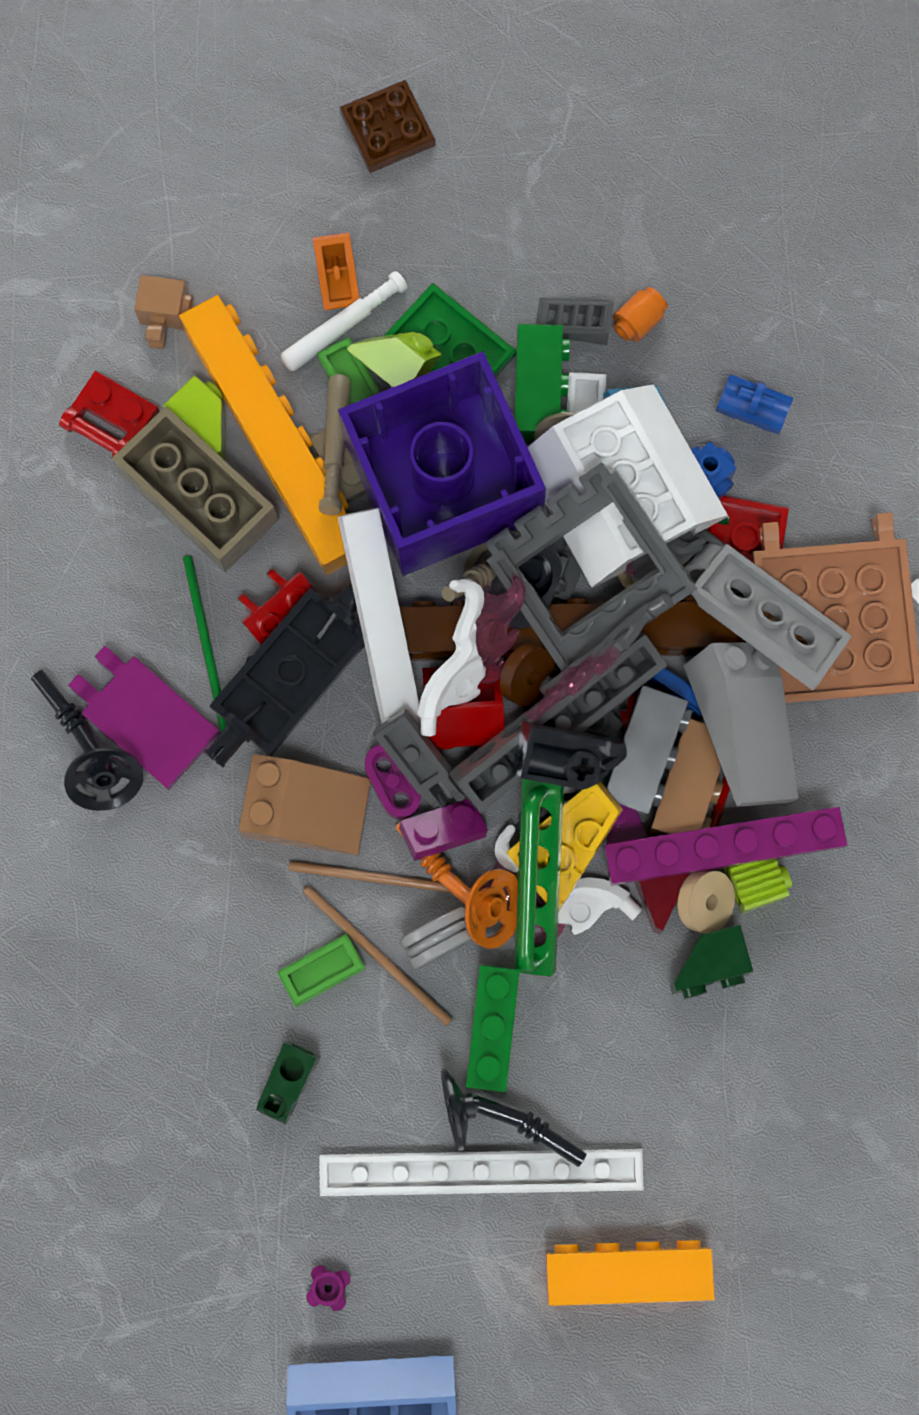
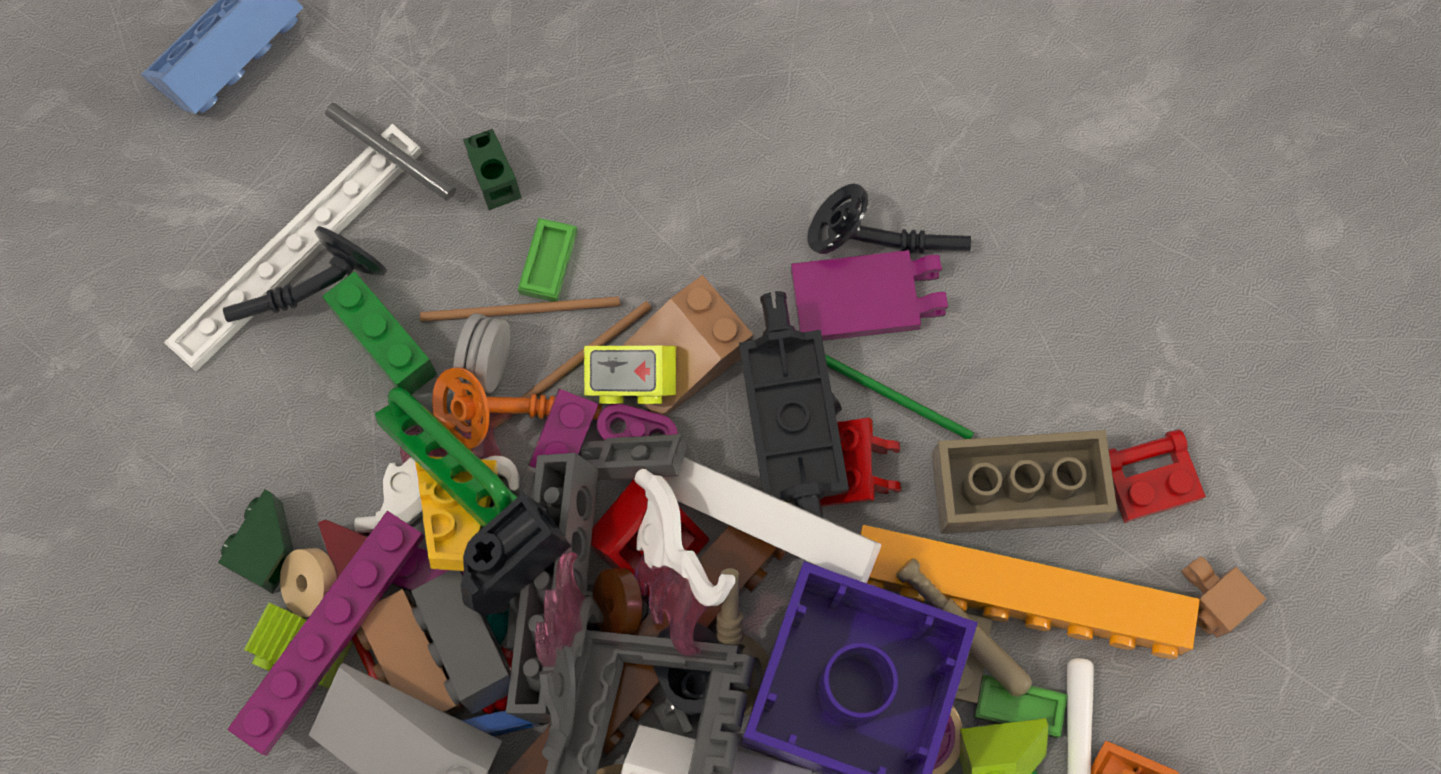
camera: 130 degrees right, 5 degrees down
(202, 411) = (1086, 544): lime slope -> none
(337, 1280) = (323, 70): magenta plate -> none
(345, 1170) = (390, 151): none -> dark grey bar
(357, 819) = (630, 371): none -> brick
(629, 1275) = (119, 277): light orange brick -> none

